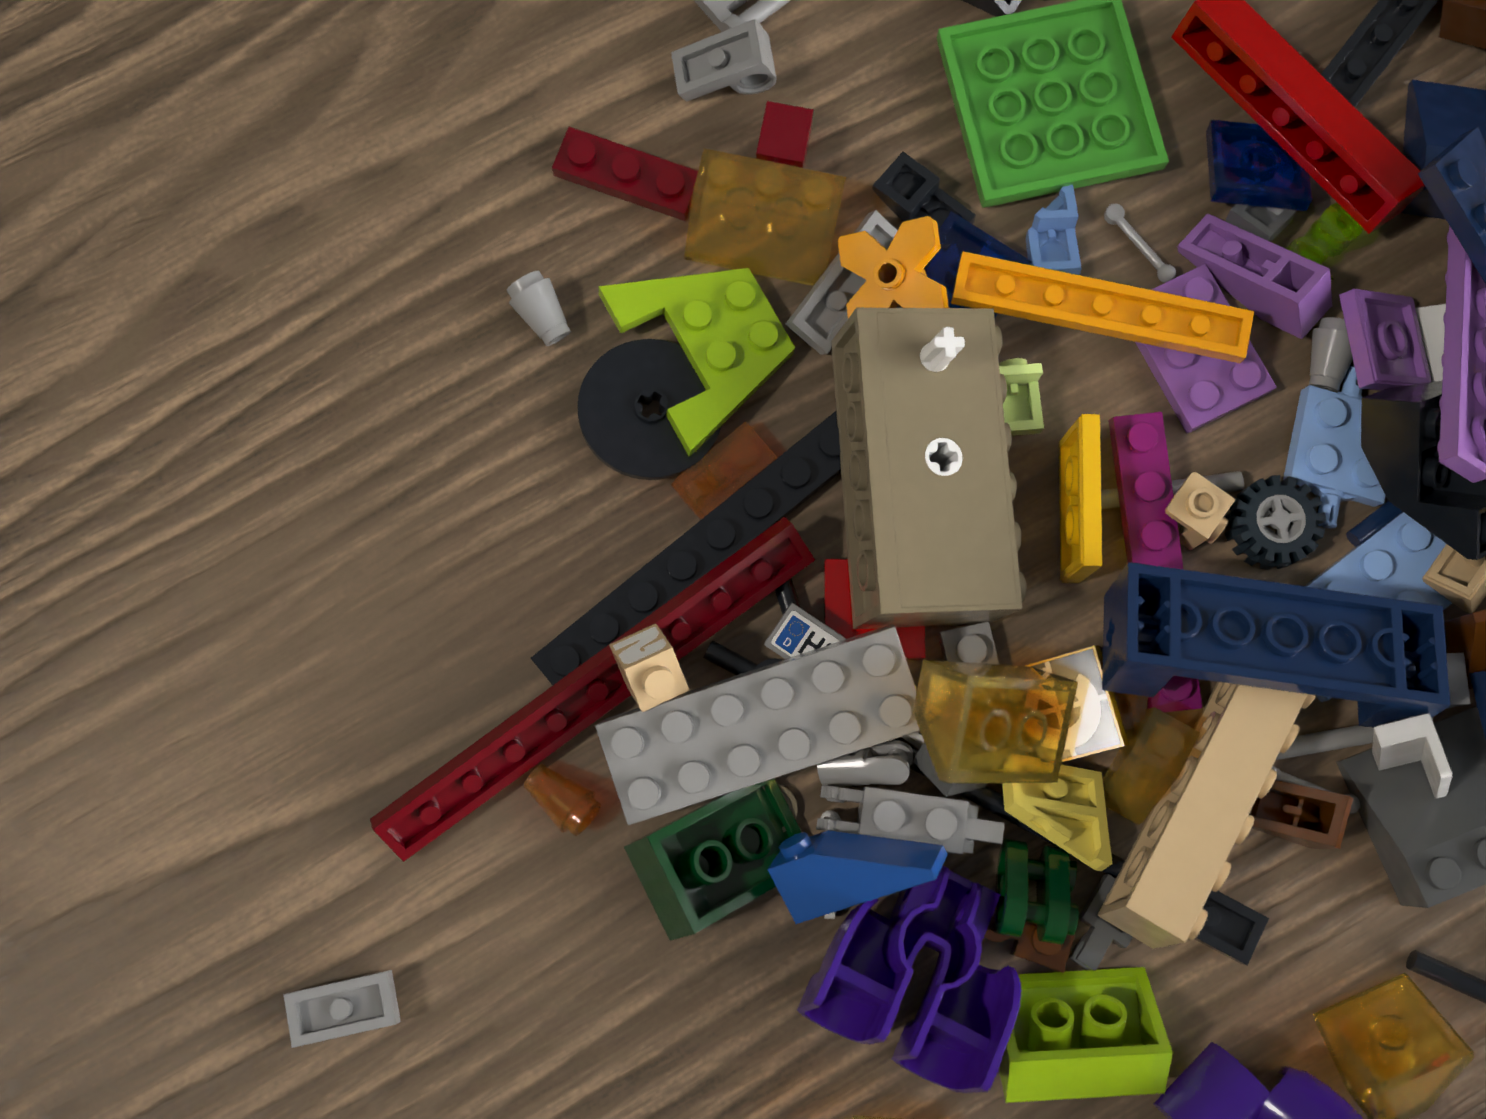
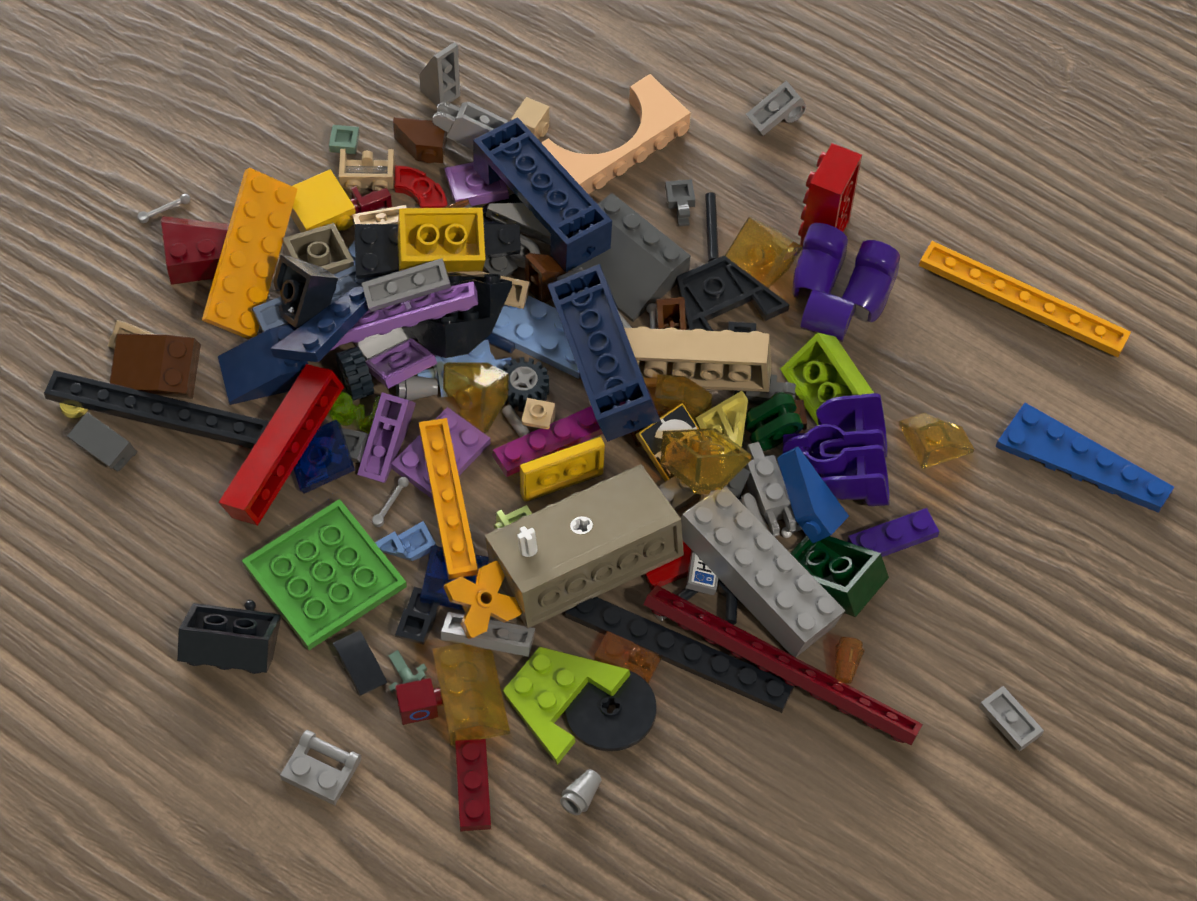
camera: 115 degrees left, 20 degrees down
(649, 667) = (761, 629): tan brick -> none
(730, 58) = (382, 753): light grey plate -> none
(746, 994) = (897, 533): none -> dark purple plate
(822, 152) = (404, 671): none -> sand green piece
(883, 91) = (359, 663): none -> black slope
(1282, 434) = (478, 391): none -> clear yellow slope
(1345, 931) = (721, 288): none -> black wing
(1390, 260) = (355, 373): none -> black wheel
(1410, 742) = (617, 284): white panel -> none

